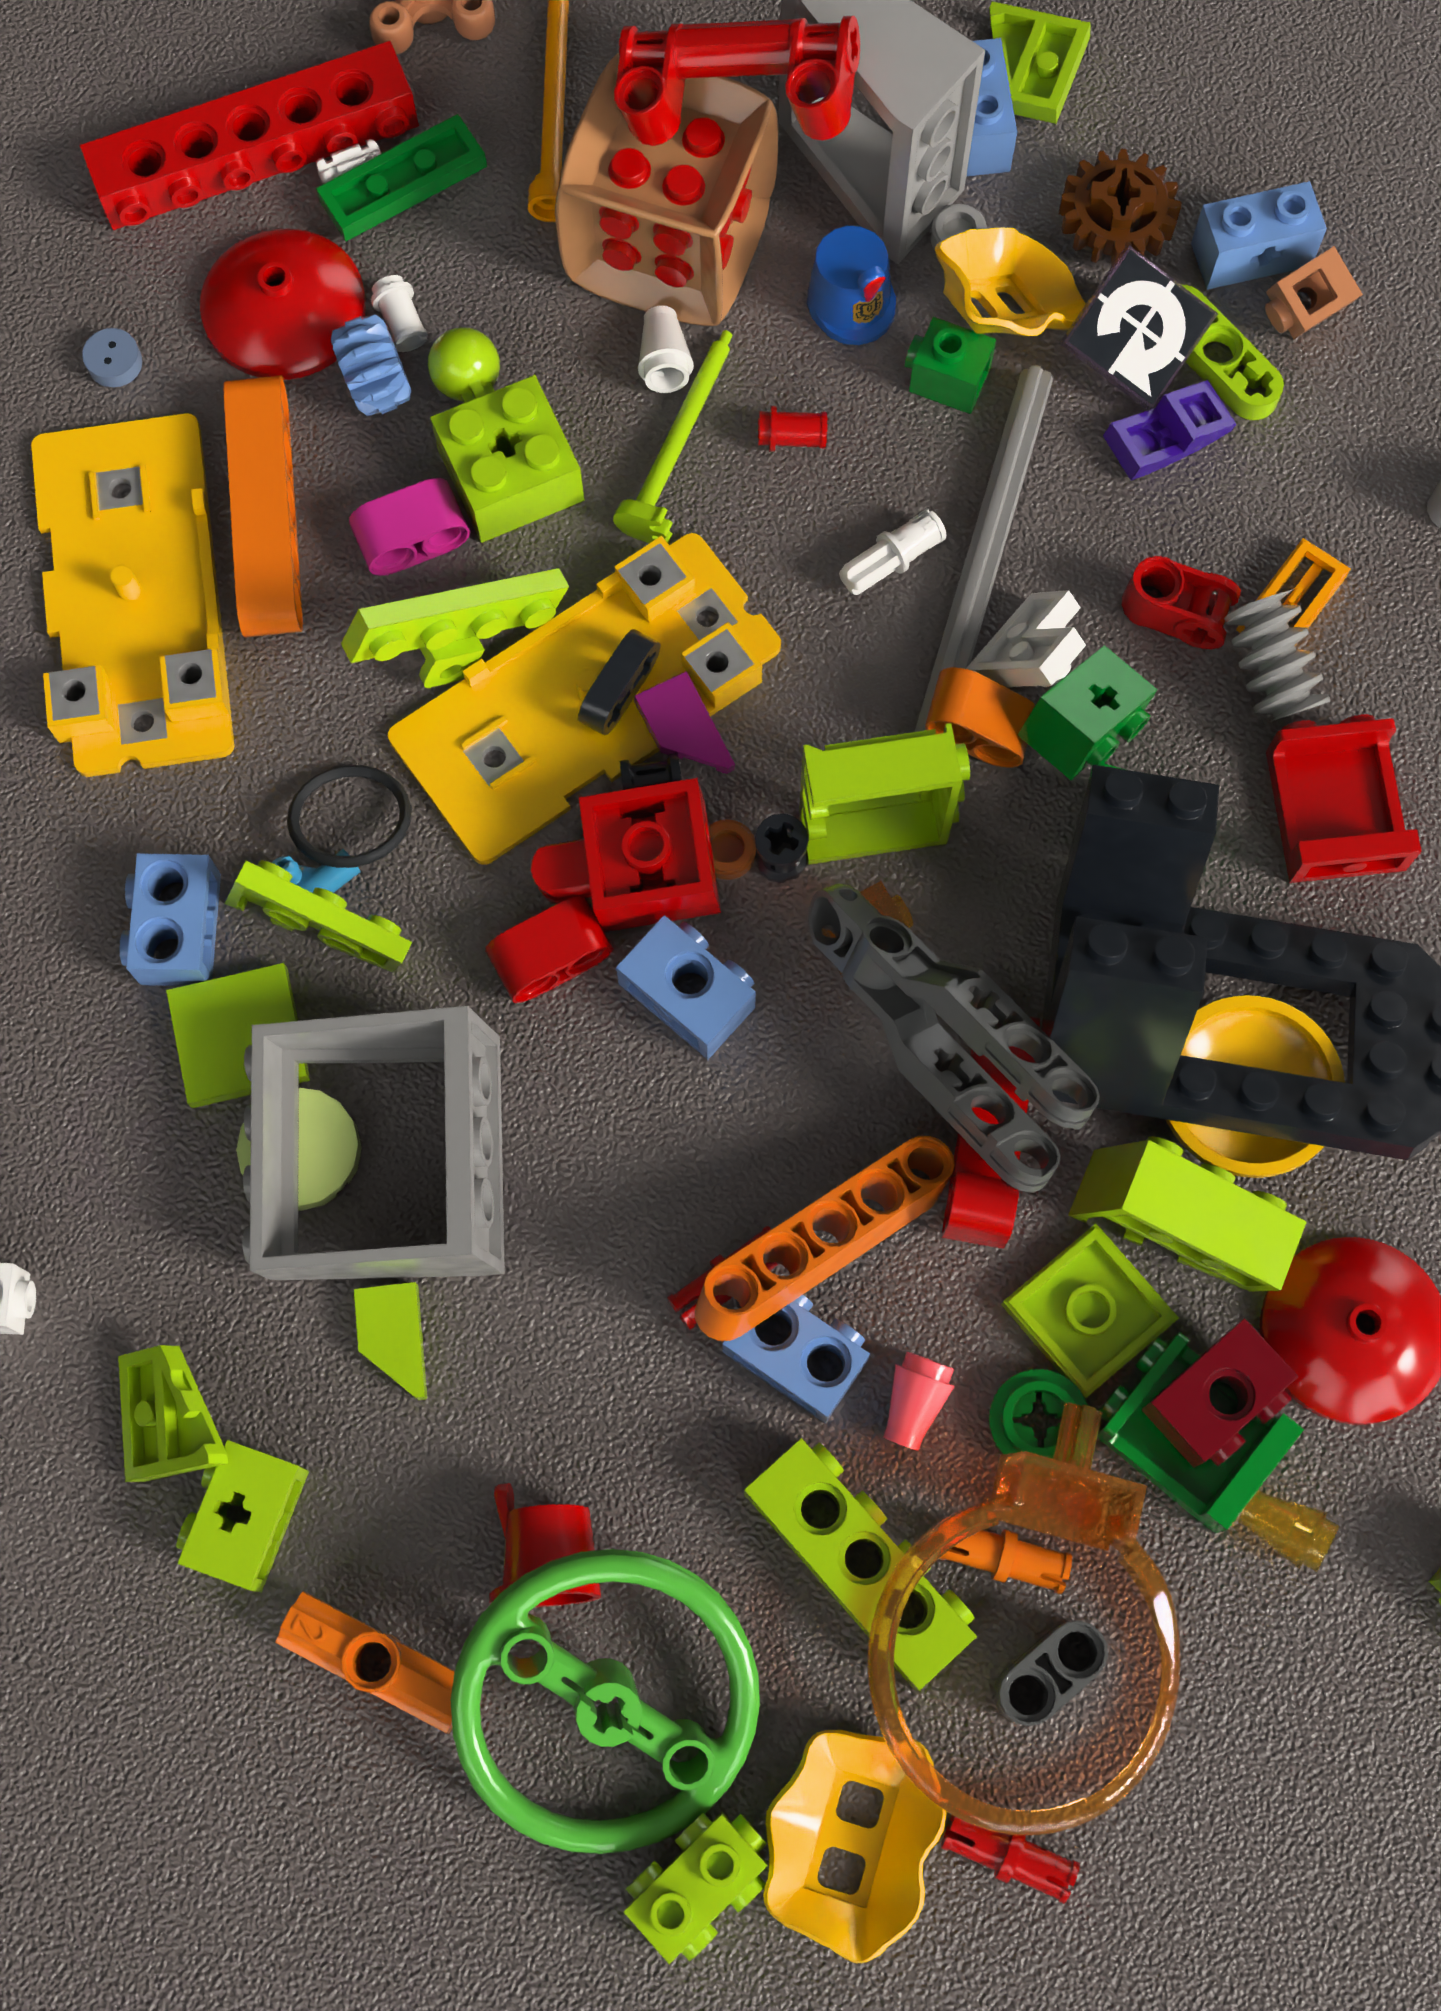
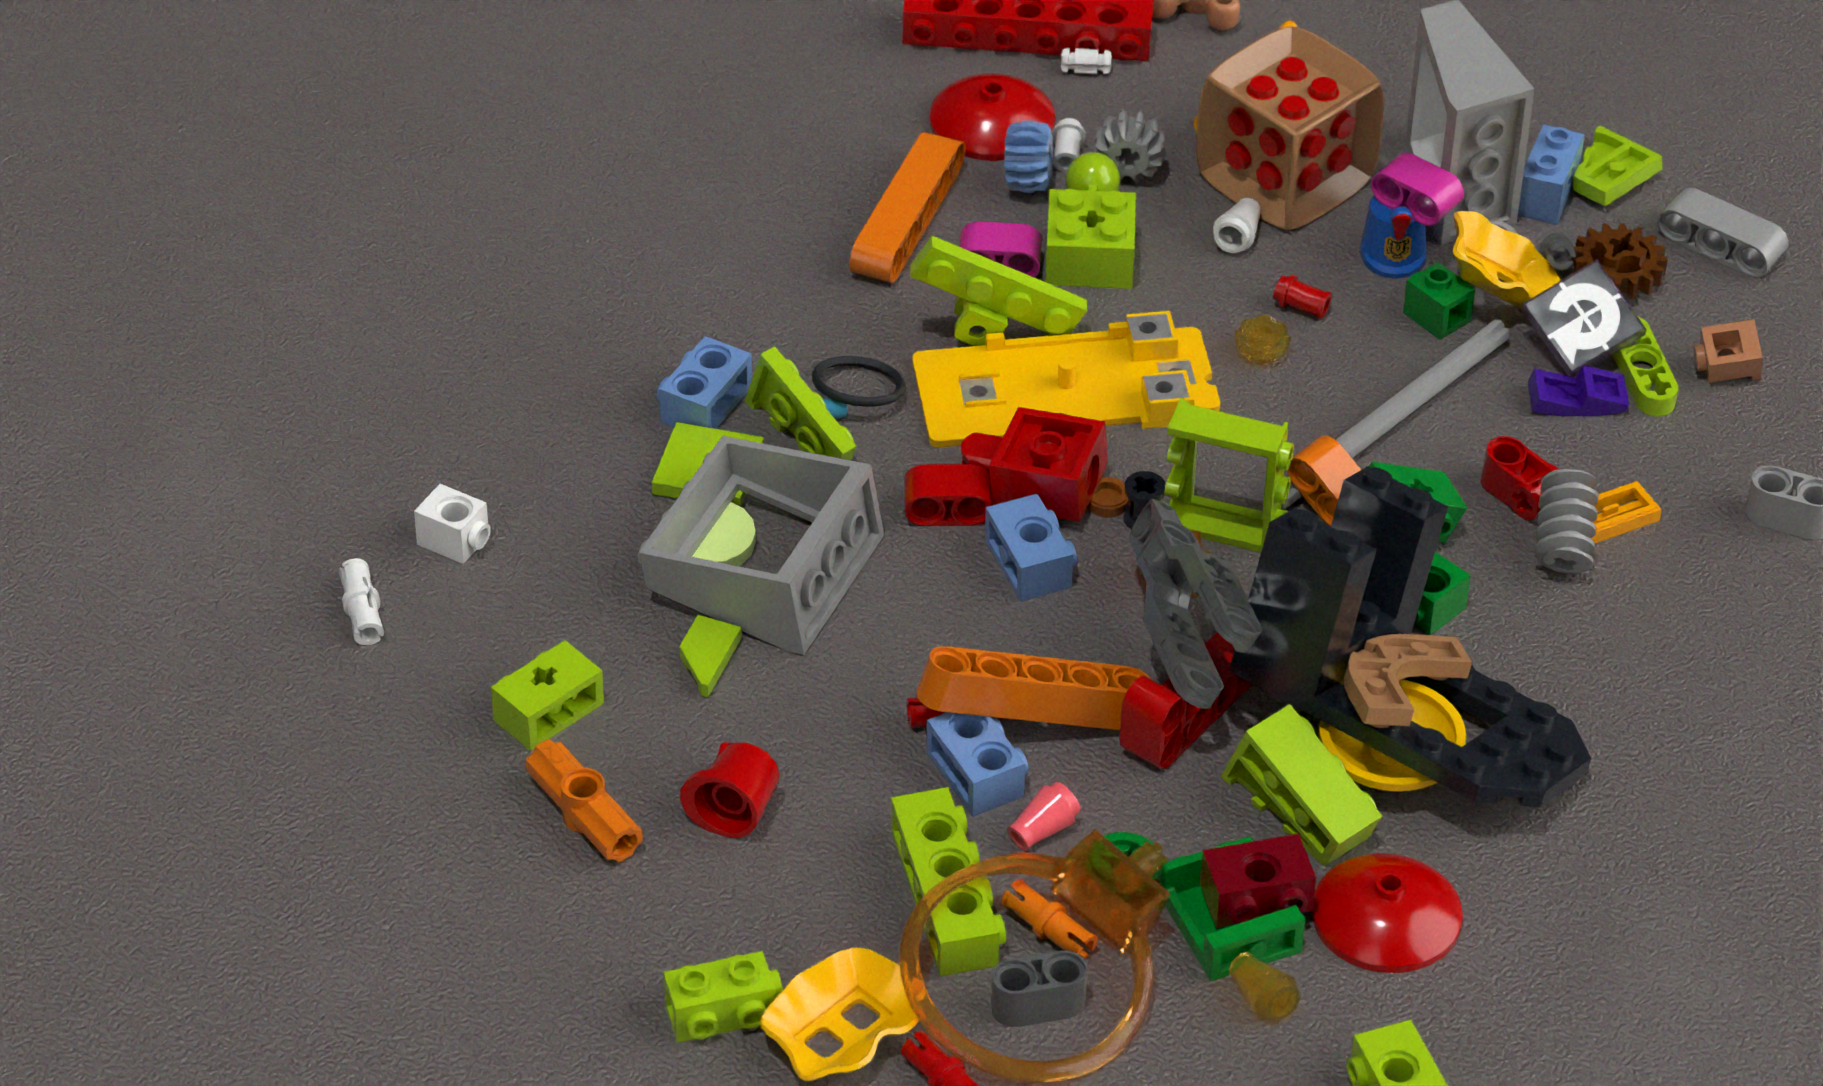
camera: 25 degrees right, 30 degrees down
(112, 357) = (857, 103): sand blue tile -> none
(132, 595) = (788, 227): yellow piece -> none
(164, 1417) = (528, 625): lime wing -> none
(401, 177) = (1117, 77): green plate -> none
(482, 290) = (1132, 144): none -> light grey gear
(582, 1683) = (688, 776): bright green piece -> none
(619, 682) = (1089, 374): black beam -> none
(640, 516) = (1163, 299): lime piece -> none
(682, 723) = (1122, 414): magenta tile -> none
(785, 503) = (1262, 339): none -> clear yellow plate
(815, 57) = (1403, 51): red piece -> none
(872, 229) = (1419, 186): none -> dark pink beam
(893, 551) = (1329, 382): white axle -> none
(1033, 643) = (1400, 450): white plate -> none
(1042, 222) = (1554, 241): none -> dark grey pin
(1089, 1310) = (1196, 817): lime tile -> none
(1208, 107) = (1722, 232): none -> light grey beam
(1219, 1043) = (1375, 672): none -> medium nougat plate
(1258, 235) = (1706, 299): medium blue brick -> none
(1339, 800) = (1568, 624): red panel -> none

